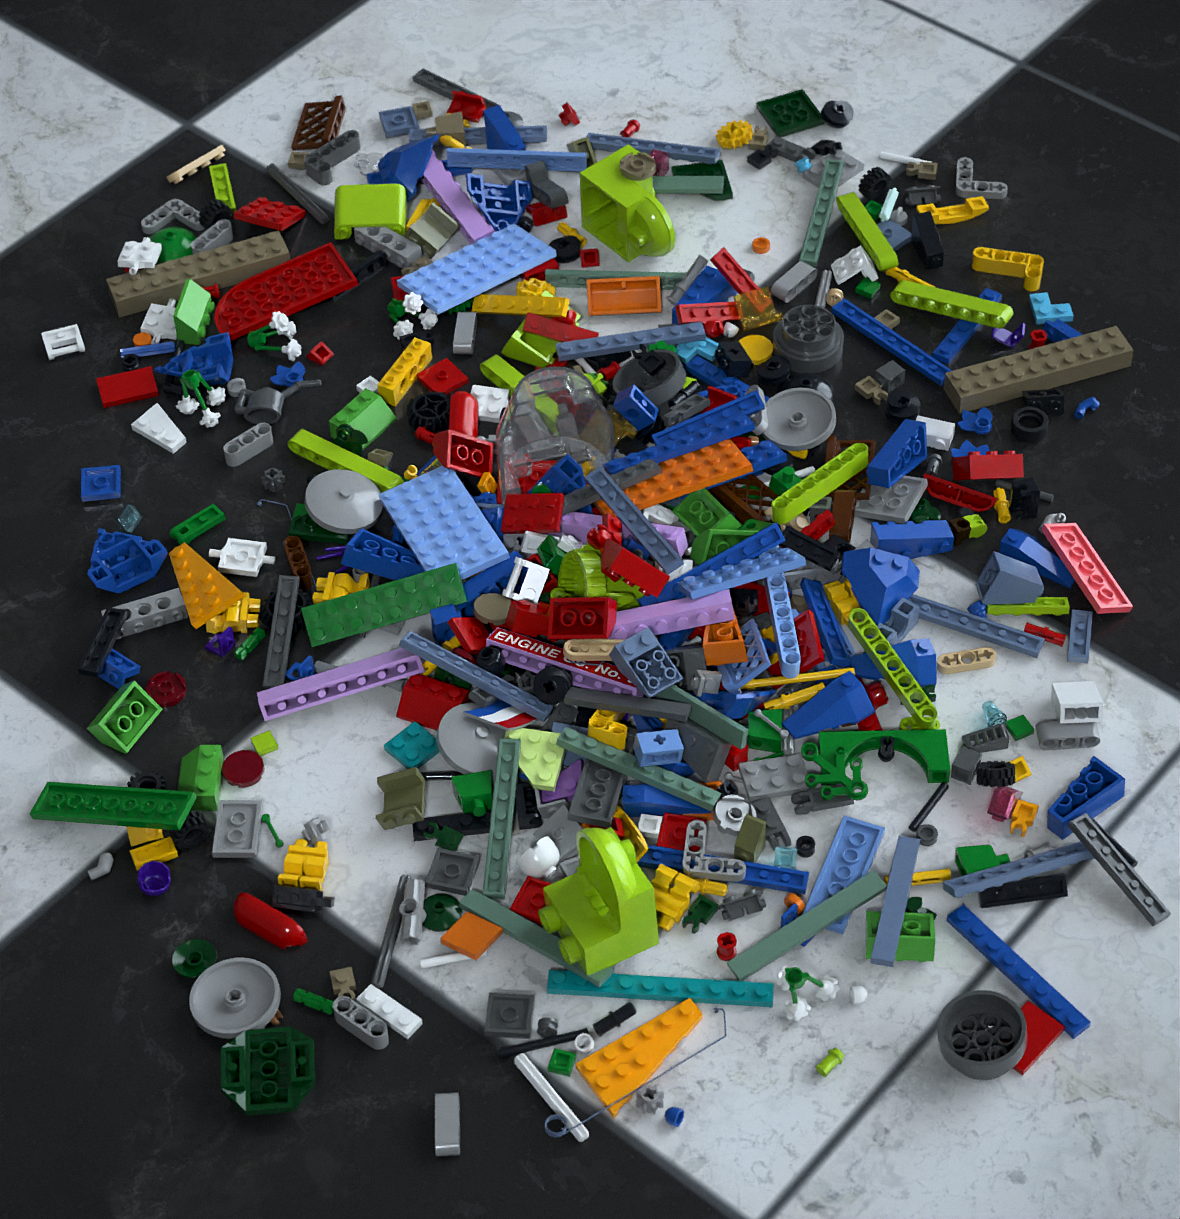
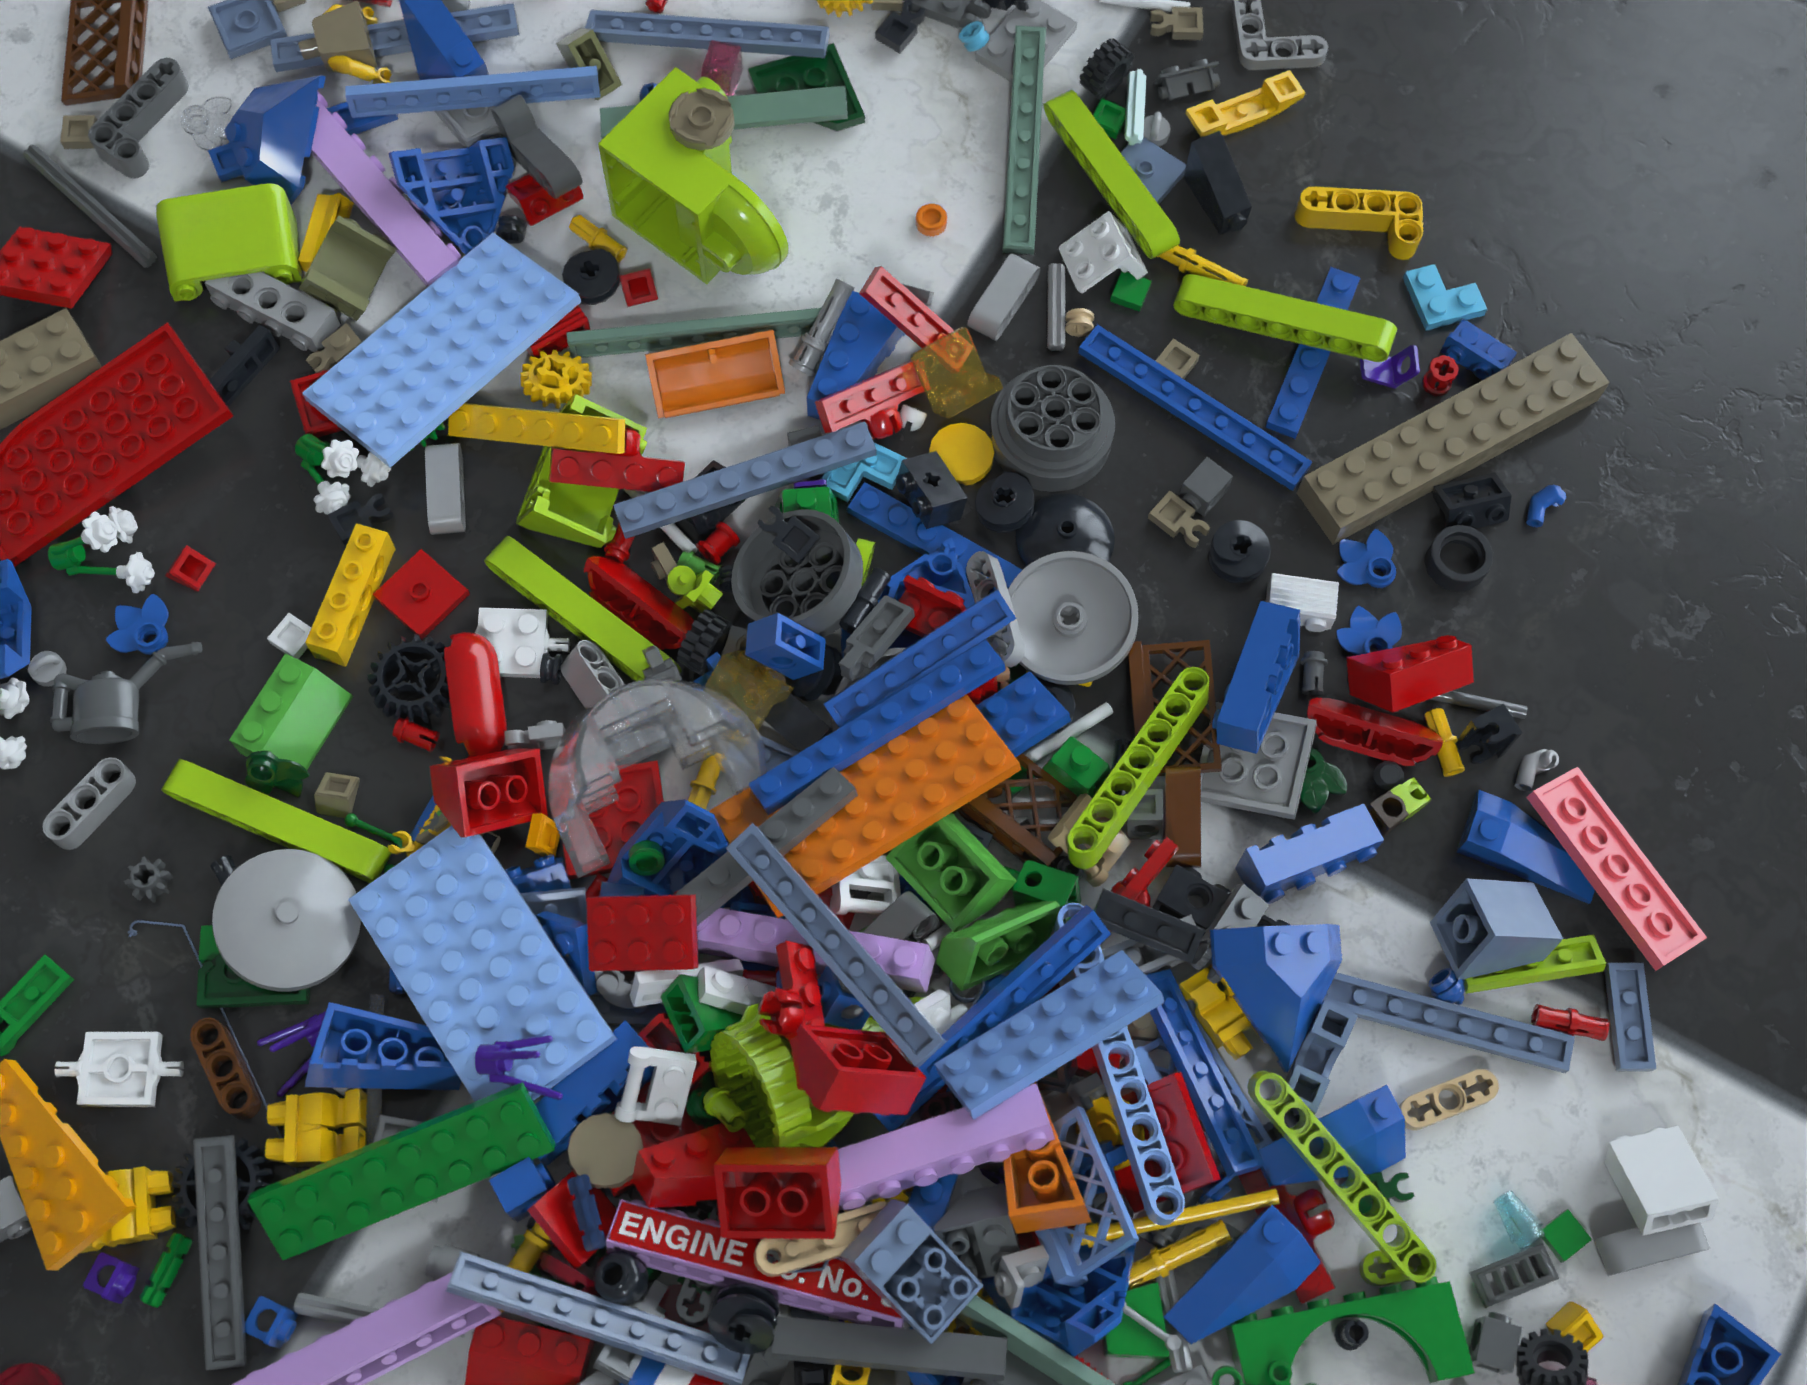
camera: 15 degrees left, 20 degrees up
(445, 552) = (498, 1059): none -> dark purple plant
(478, 627) = (586, 1212): none -> dark blue axle

